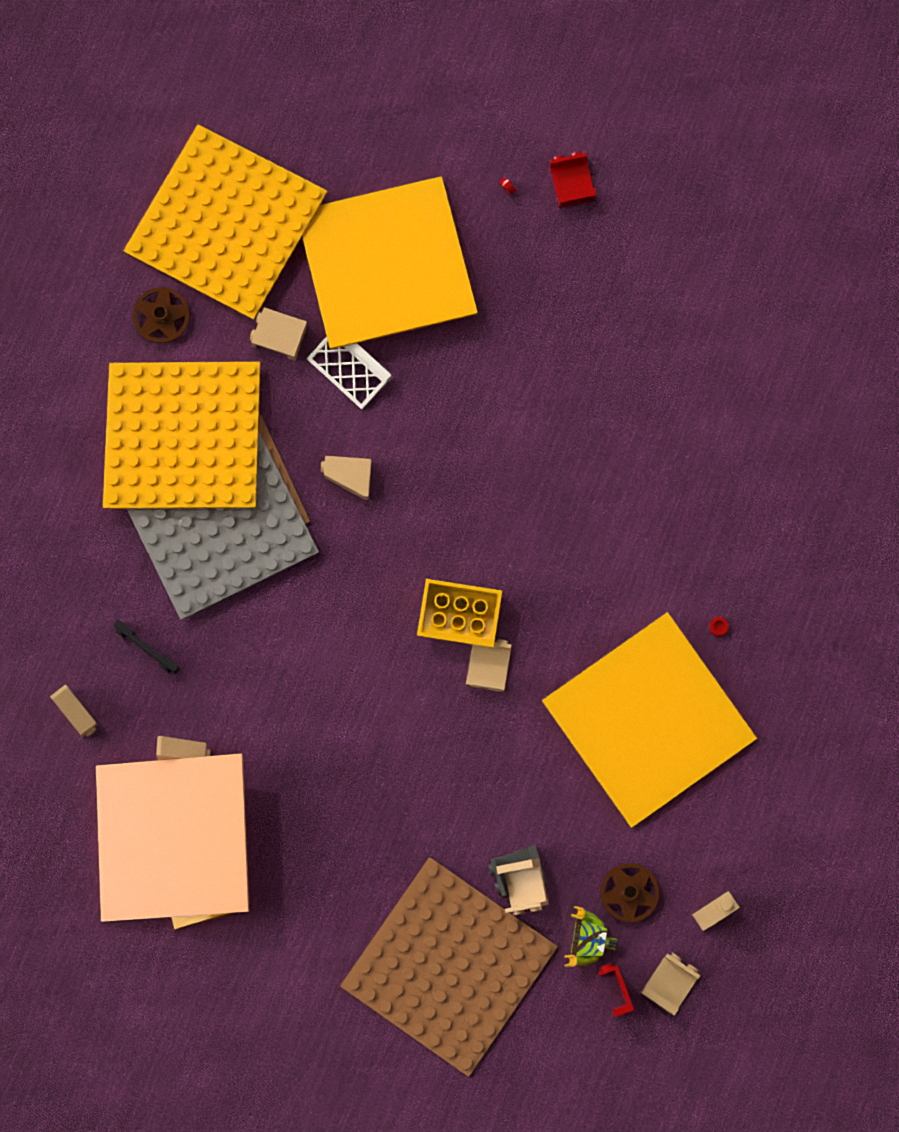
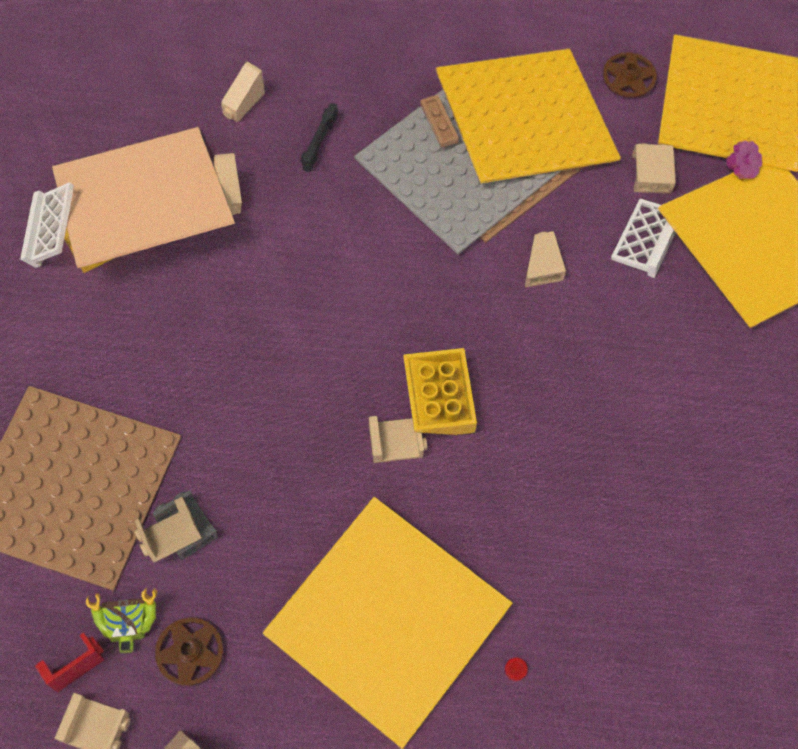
camera: 70 degrees right, 15 degrees down
(170, 524) = (439, 121): none -> medium nougat plate
(173, 945) = (39, 229): none -> white fence
(303, 246) = (745, 160): none -> magenta plant

